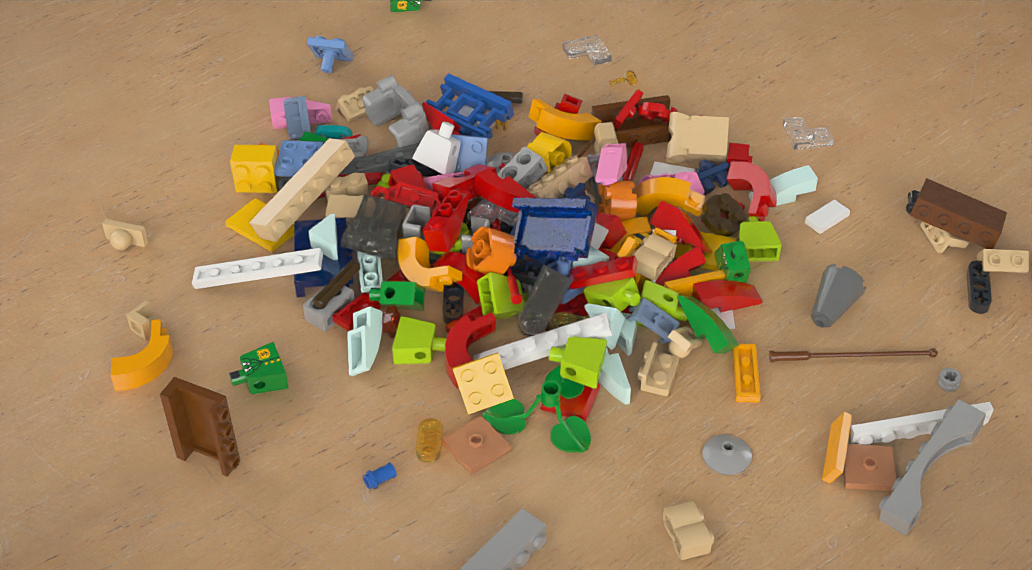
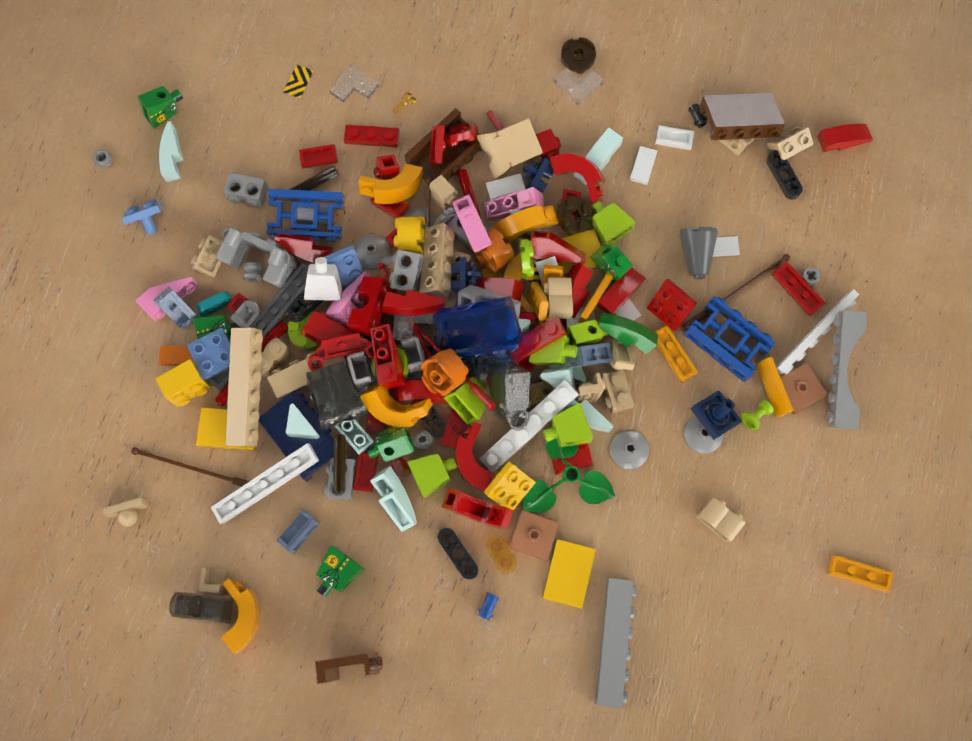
camera: 30 degrees left, 30 degrees up
(117, 322) = (202, 607): none -> clear smoke piece
(172, 203) = (235, 481): none -> reddish brown piece
(255, 327) = (298, 532): none -> sand blue hinge
(331, 10) = (99, 155): none -> light grey plate
(382, 130) = (252, 272): none -> light grey wheel
(388, 27) = (170, 153): none -> light aqua slope
(391, 427) = (444, 544): none -> black beam
(428, 74) = (247, 187): none -> light grey brick
(432, 314) = (426, 444): none -> light grey plate
(433, 388) = (477, 510): none -> red arch
(485, 495) = (569, 574): none -> yellow tile
(514, 81) = (318, 156): none -> red plate
(541, 31) = (298, 81): none -> sticker
(570, 86) = (371, 136): none -> red plate
(629, 347) = (592, 390): none -> tan bracket
(635, 428) = (622, 456): none -> light grey dish
(643, 211) = (526, 253): none -> lime plate
(752, 435) = (716, 414): none -> dark blue plate
(770, 323) = (671, 305): none -> red plate
(790, 461) = (751, 419): none -> lime piece
(799, 390) = (722, 351): none -> blue fence
(830, 112) = (574, 63): none -> dark brown plate
(867, 315) = (726, 246): none -> white sticker
(877, 210) = (674, 137): none -> white tile
(927, 381) = (798, 289): none -> red plate

